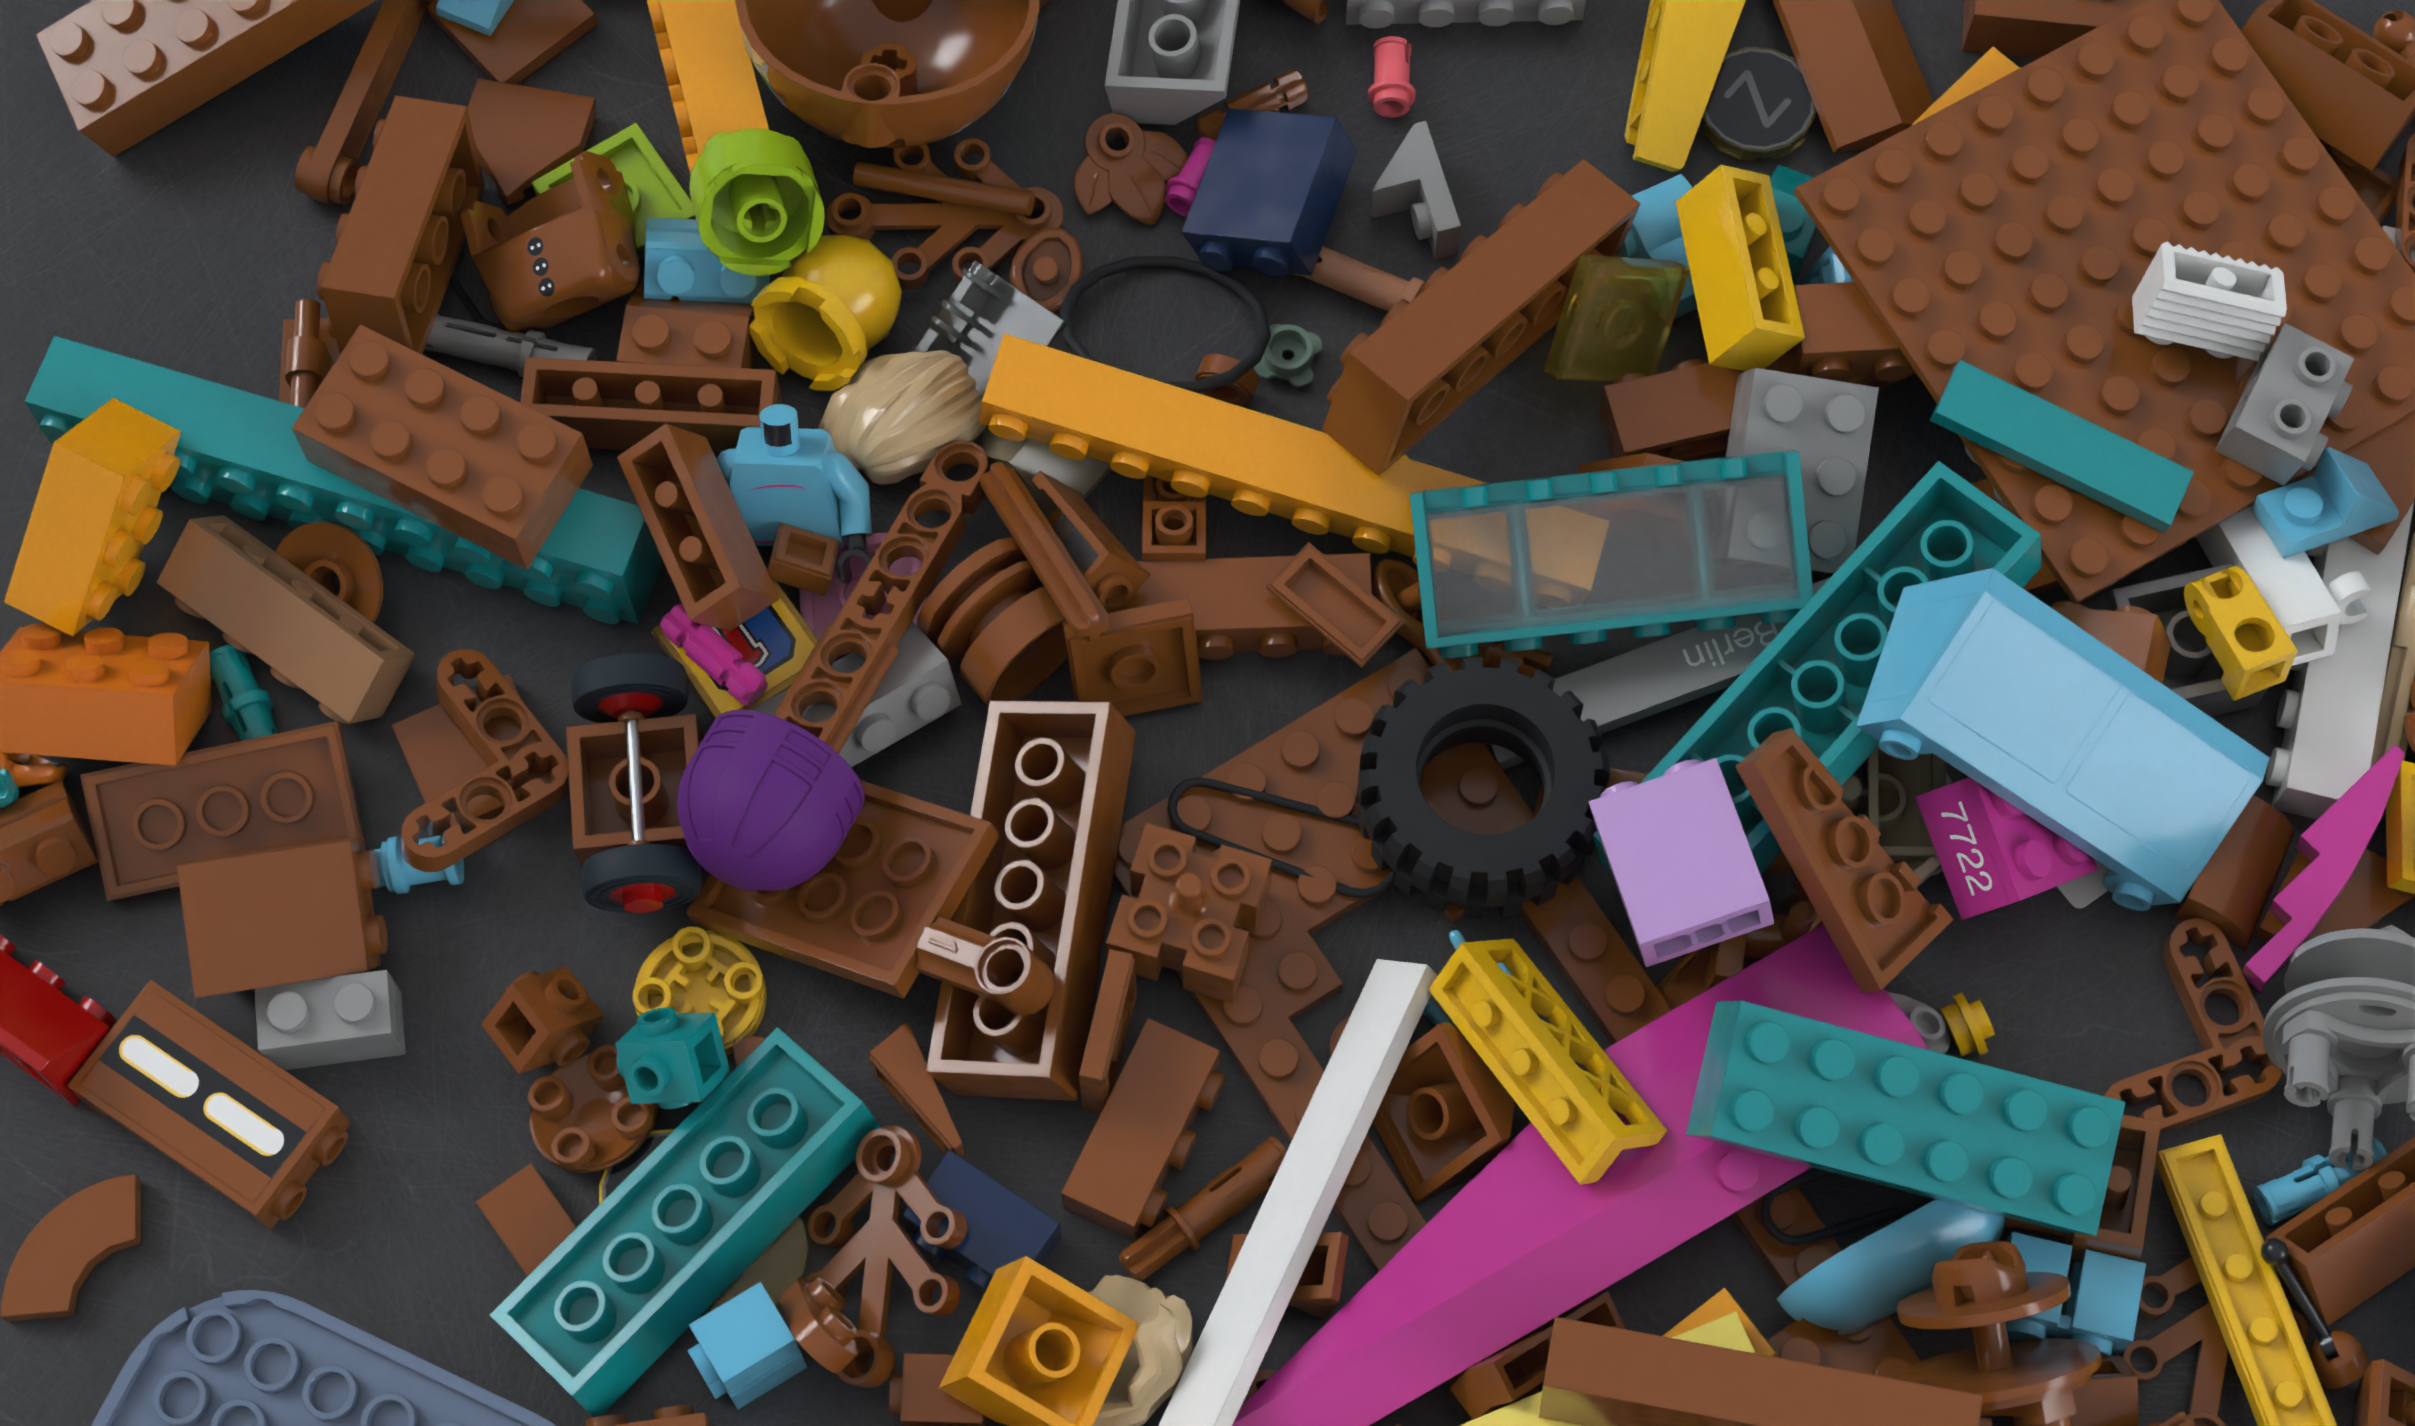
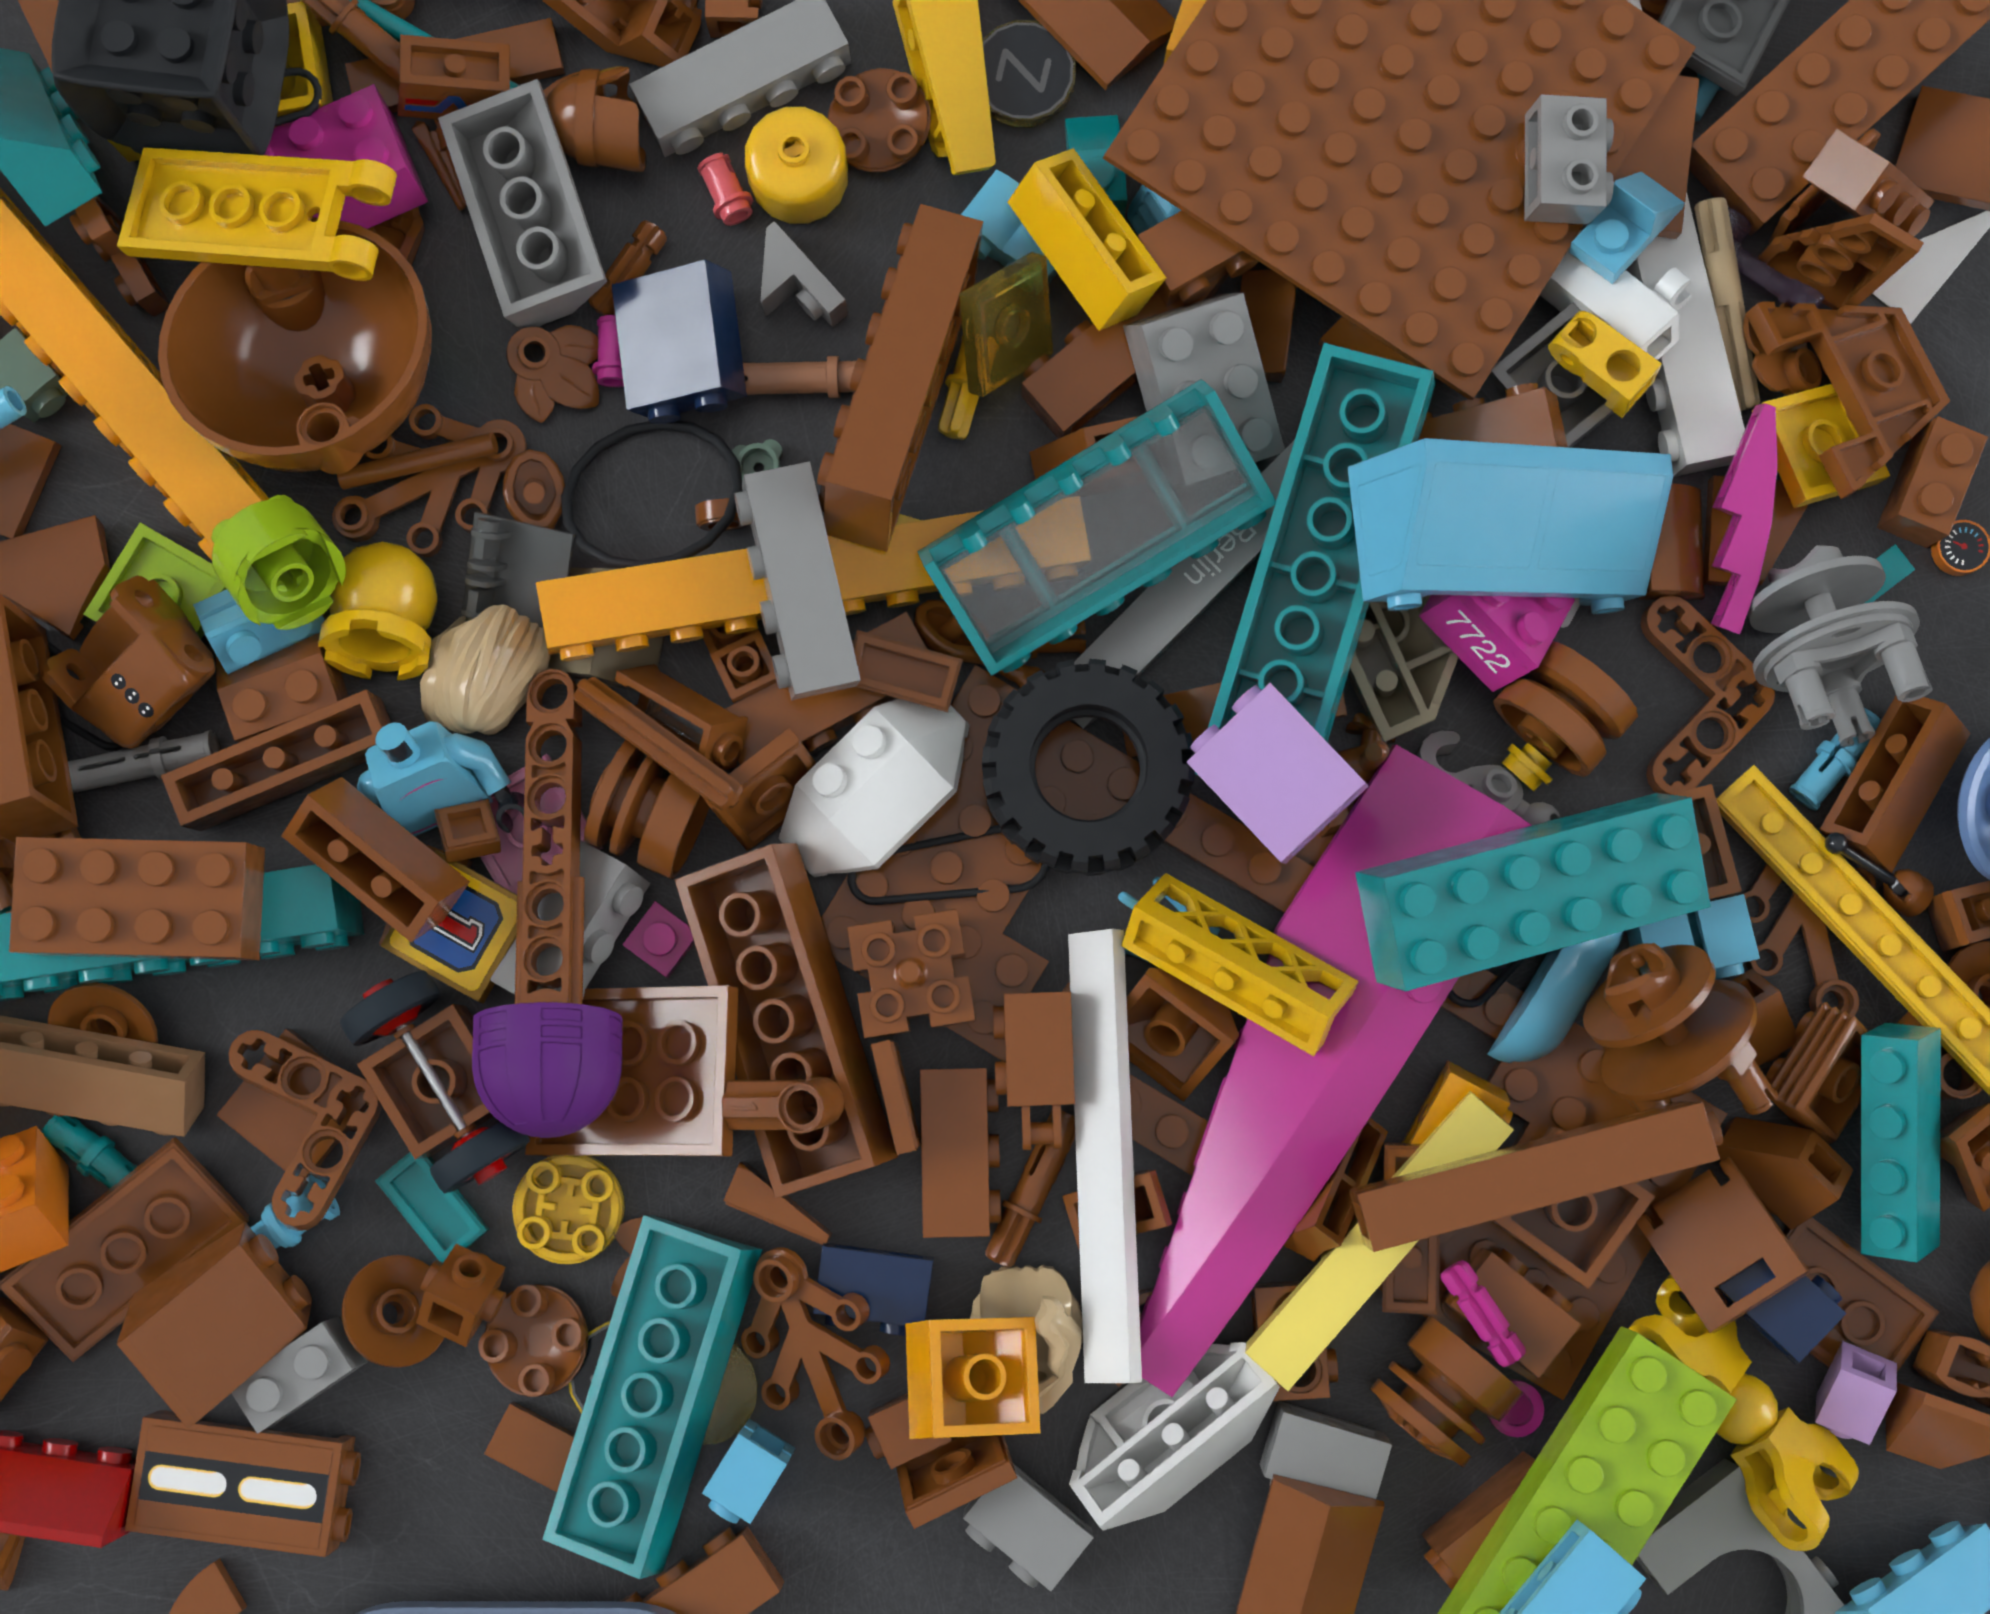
camera: 25 degrees left, 15 degrees up
(475, 979) = (394, 1282): none -> dark orange dish
(560, 919) = (435, 1216): none -> teal tile
(672, 1058) = (577, 1282): teal brick -> none
(714, 656) = (445, 952): dark pink axle -> none
(818, 1323) = (795, 1433): dark orange plate -> none
(941, 768) = (660, 939): none -> dark pink plate
(1247, 709) = (875, 787): none -> white wedge
(1273, 456) = (799, 581): none -> light grey brick
(1278, 1064) = (1037, 1059): none -> dark orange brick
(1476, 81) = (796, 165): none -> yellow head
(1527, 386) = (959, 403): none -> yellow axle
(1583, 80) = (880, 118): none -> dark orange dish
(1849, 878) = (1404, 715): dark orange wing -> none
(1898, 448) = (1270, 309): none -> dark orange slope
(2035, 973) = (1567, 709): none -> dark orange wheel
(2062, 446) = (1409, 278): teal tile -> none
(2209, 302) = (1474, 104): white brick -> none

